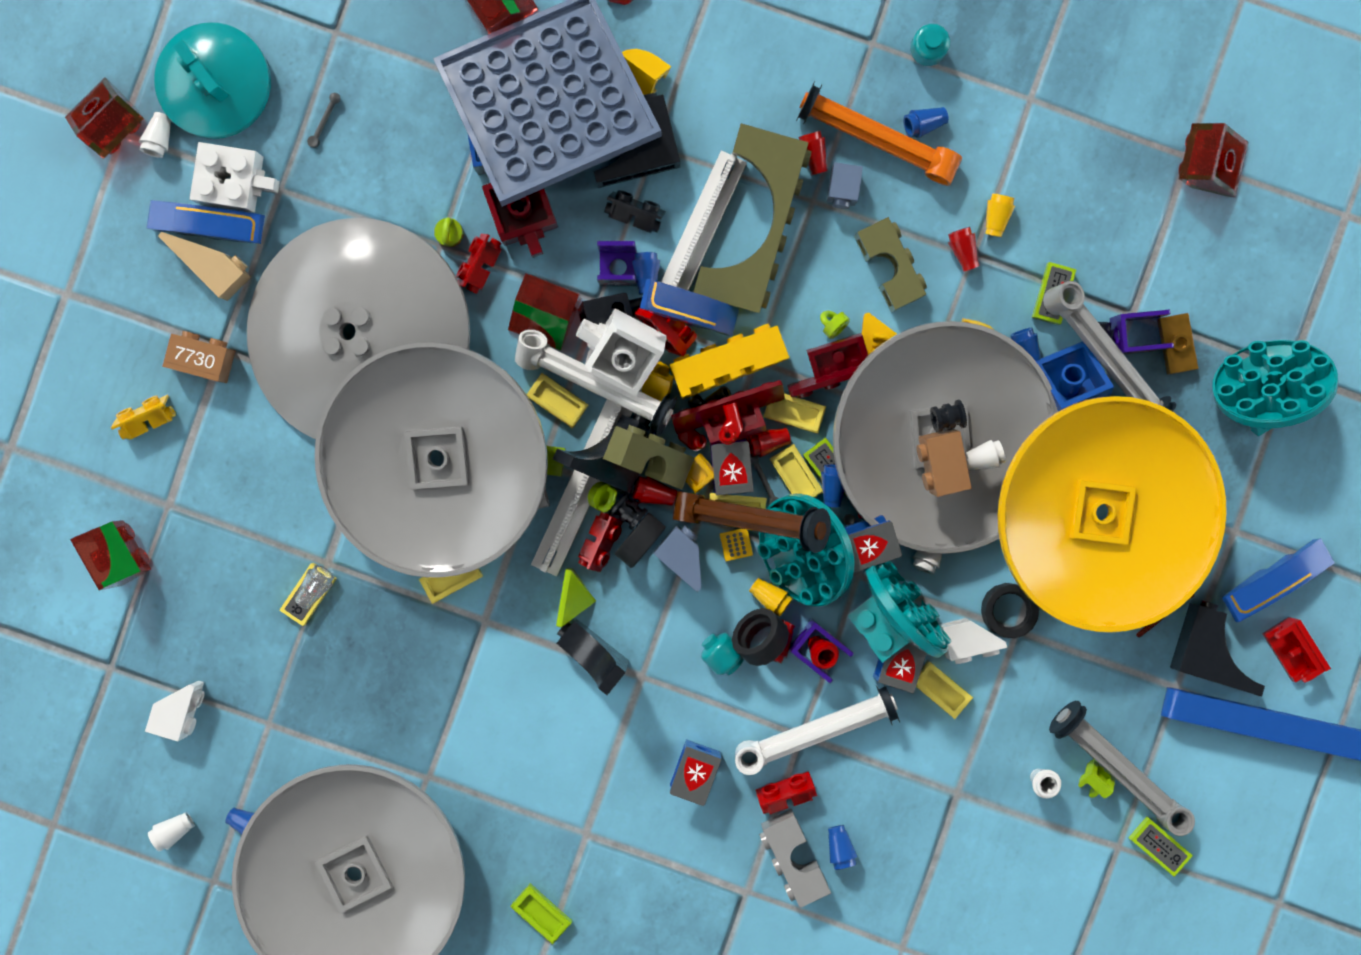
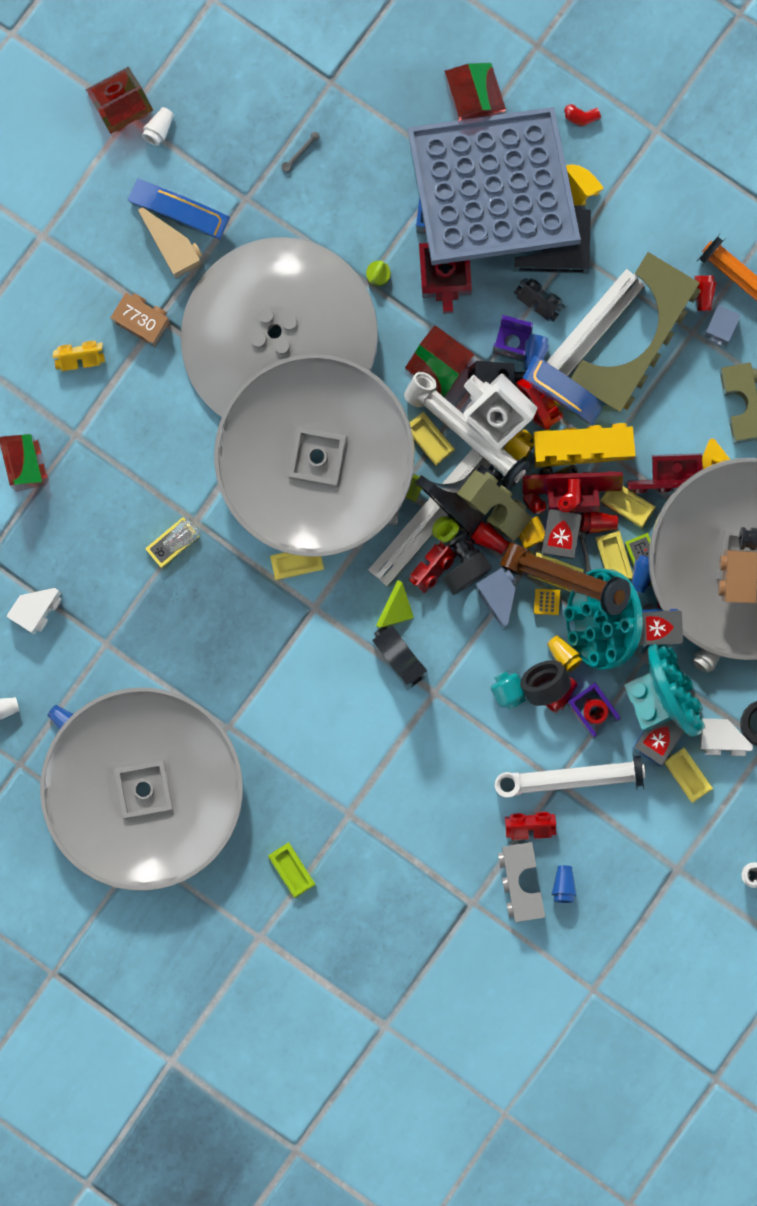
camera: 30 degrees right, 5 degrees down
(212, 80) = (218, 94): teal bracket -> none
(240, 191) = (213, 192): white hinge -> none
(481, 252) = (400, 297): red hinge -> none
(695, 772) = (458, 783): piece -> none
(836, 325) = (681, 441): lime tile -> none

